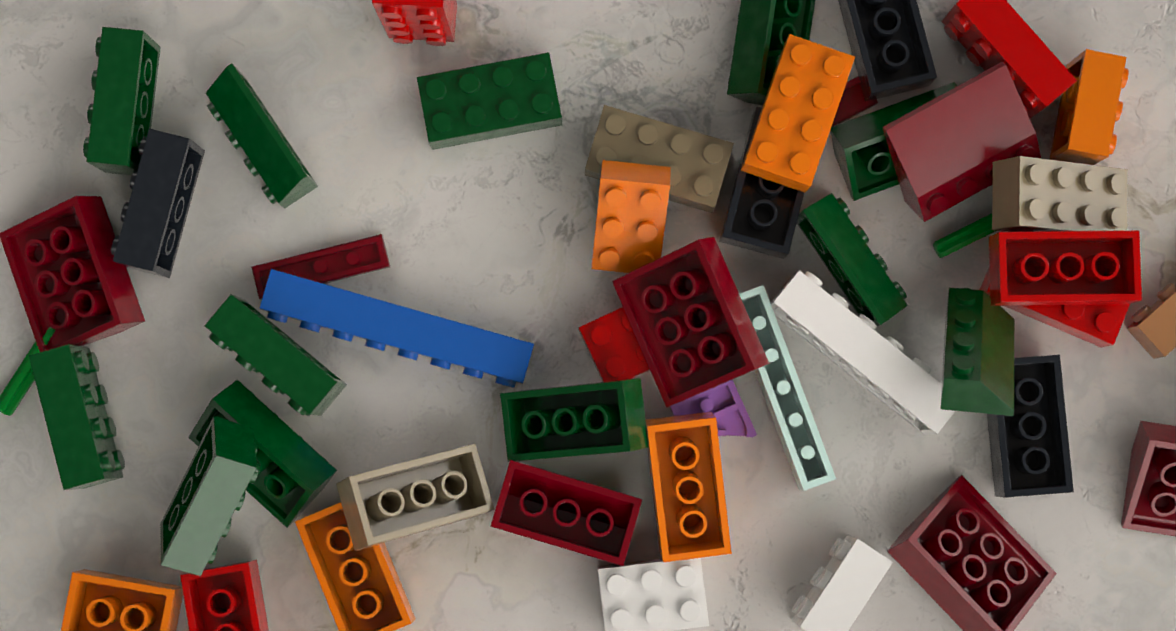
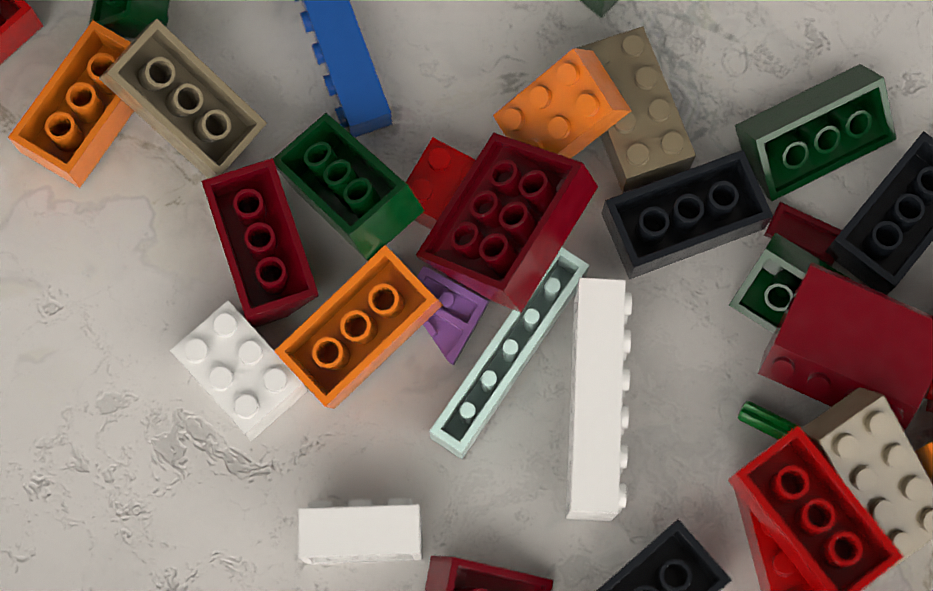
camera: 55 degrees right, 10 degrees down
(798, 113) = (763, 181): orange brick -> none
(850, 260) = (672, 334): dark green slope -> none
(977, 355) = (671, 495): dark green slope -> none

